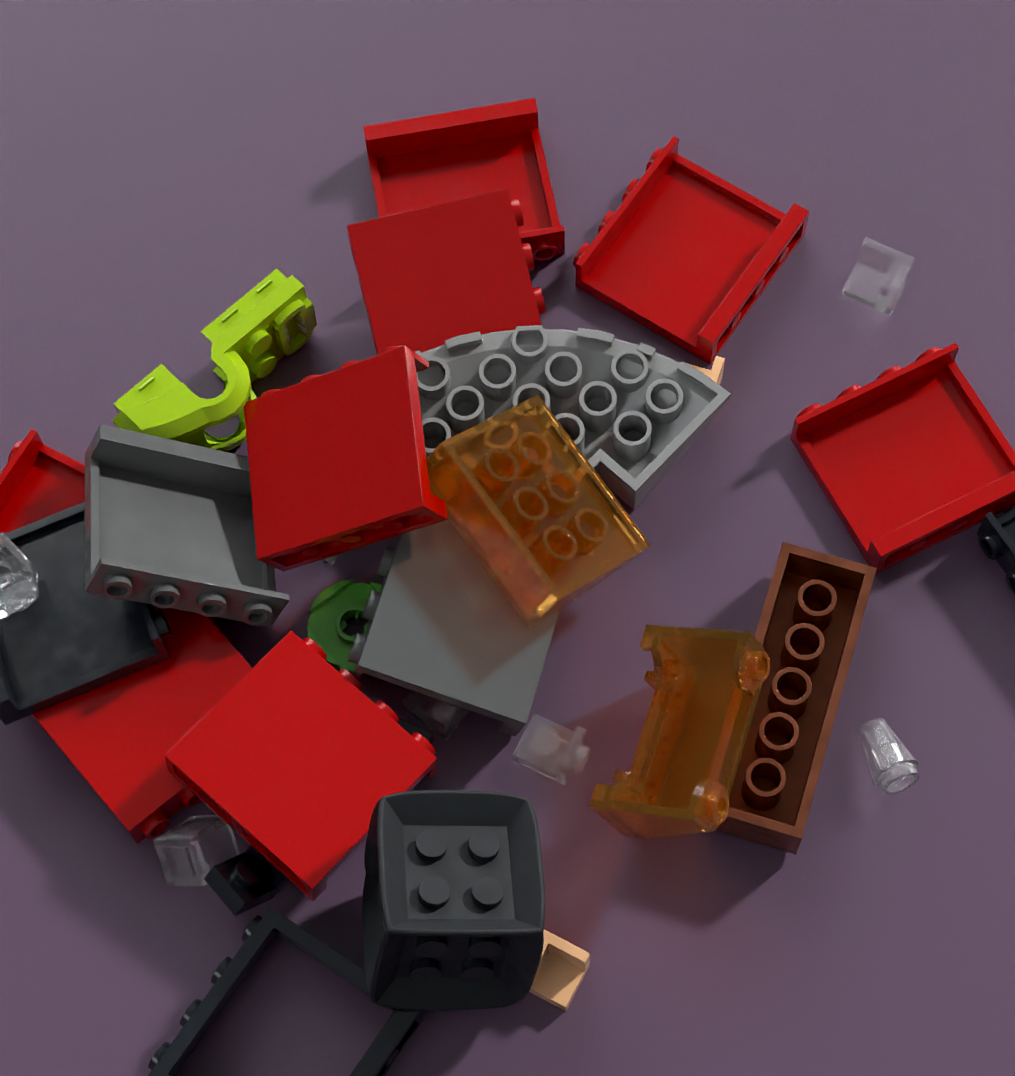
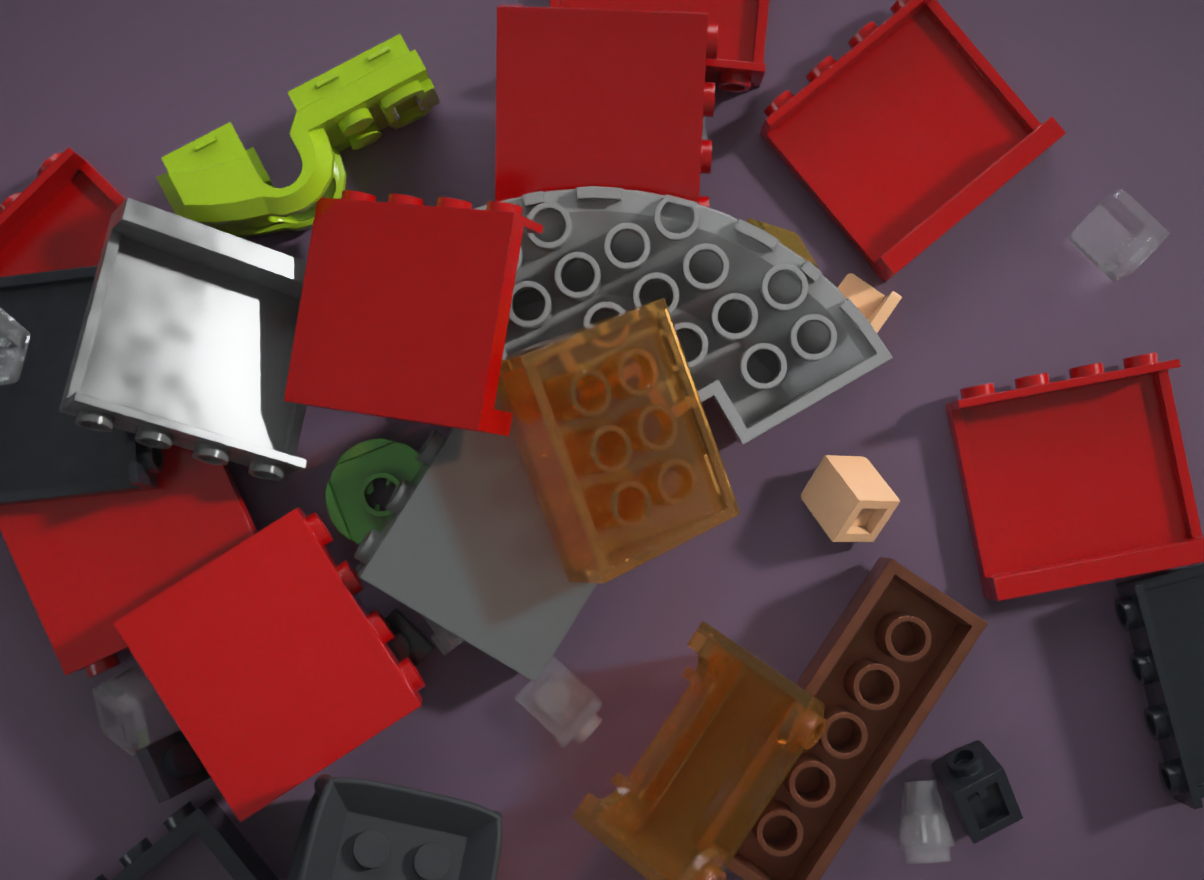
camera: 10 degrees right, 20 degrees up
(736, 523) = (849, 498): none -> light nougat panel
(923, 717) = (978, 790): none -> black bracket

